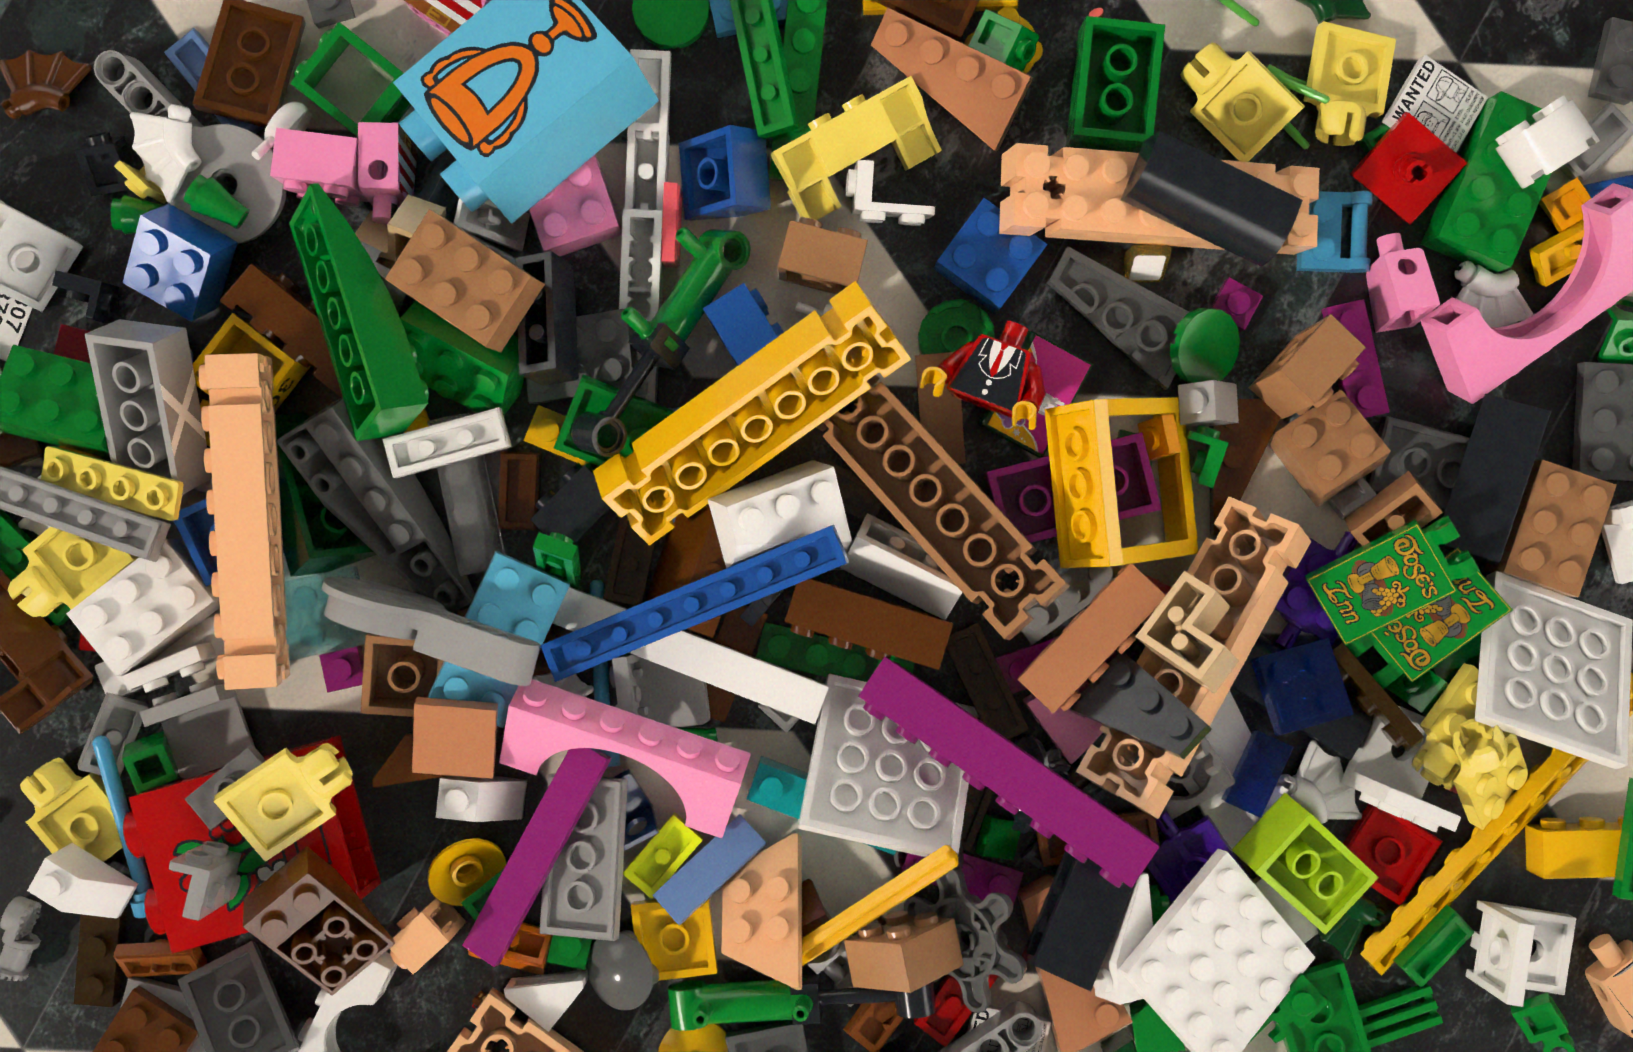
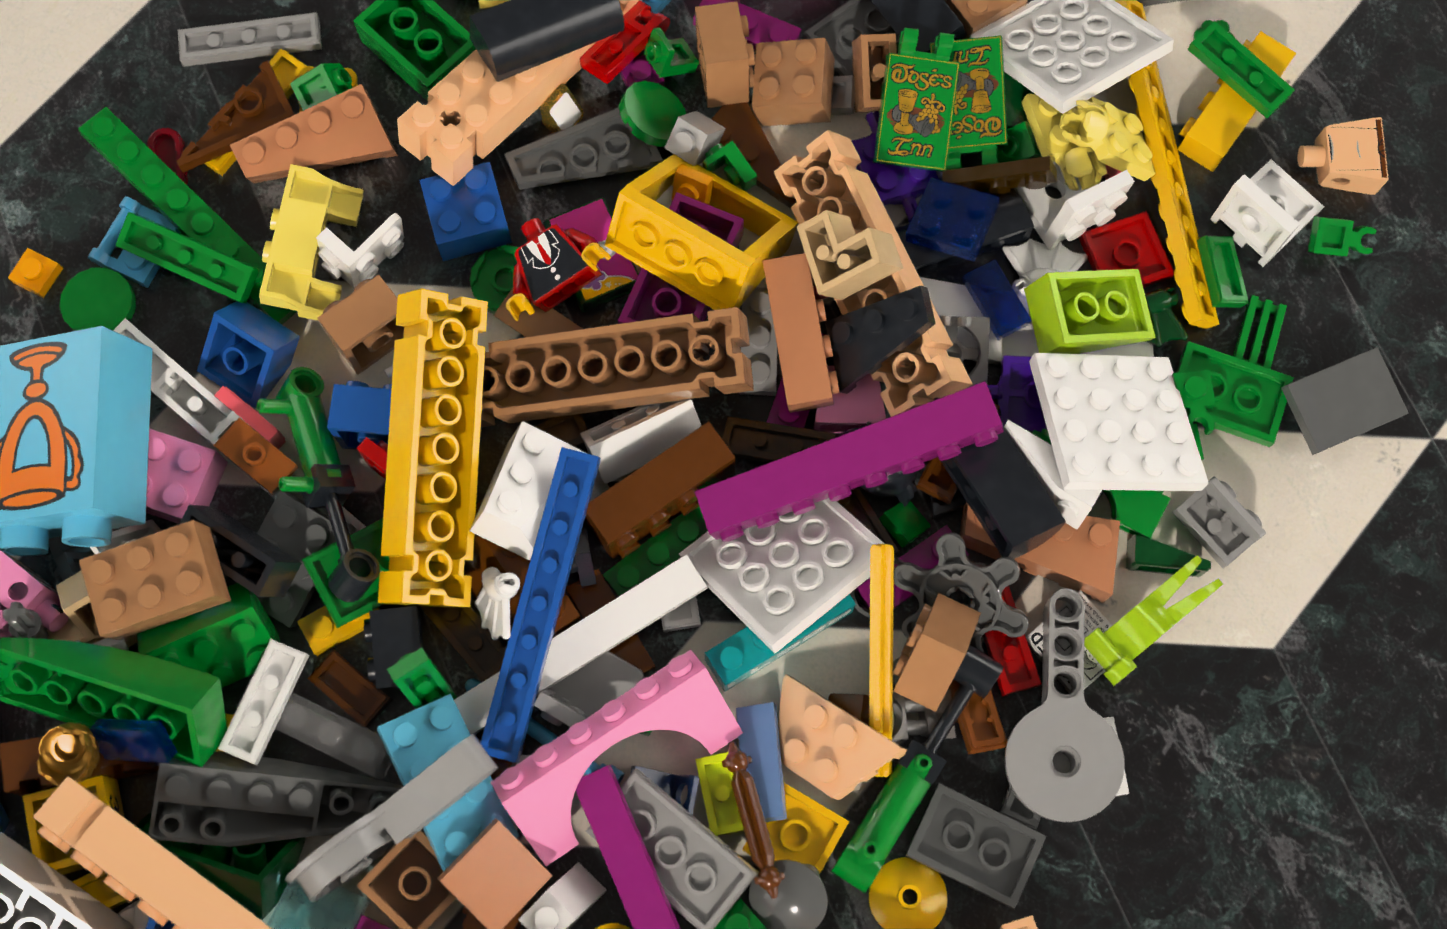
camera: 55 degrees left, 15 degrees down
(282, 328) = (68, 752): none -> pearl gold hair
(333, 370) = (133, 740): none -> clear blue plate
(356, 202) = (24, 622): none -> dark grey axle
(638, 263) = (255, 455): none -> dark orange plate
(656, 903) = (753, 820): none -> reddish brown wheel
(670, 560) = (495, 601): none -> white arm
(715, 366) = (375, 455): none -> red plate
(1229, 270) = (614, 53): none -> red plate
(1272, 317) = (669, 56): none -> green bracket

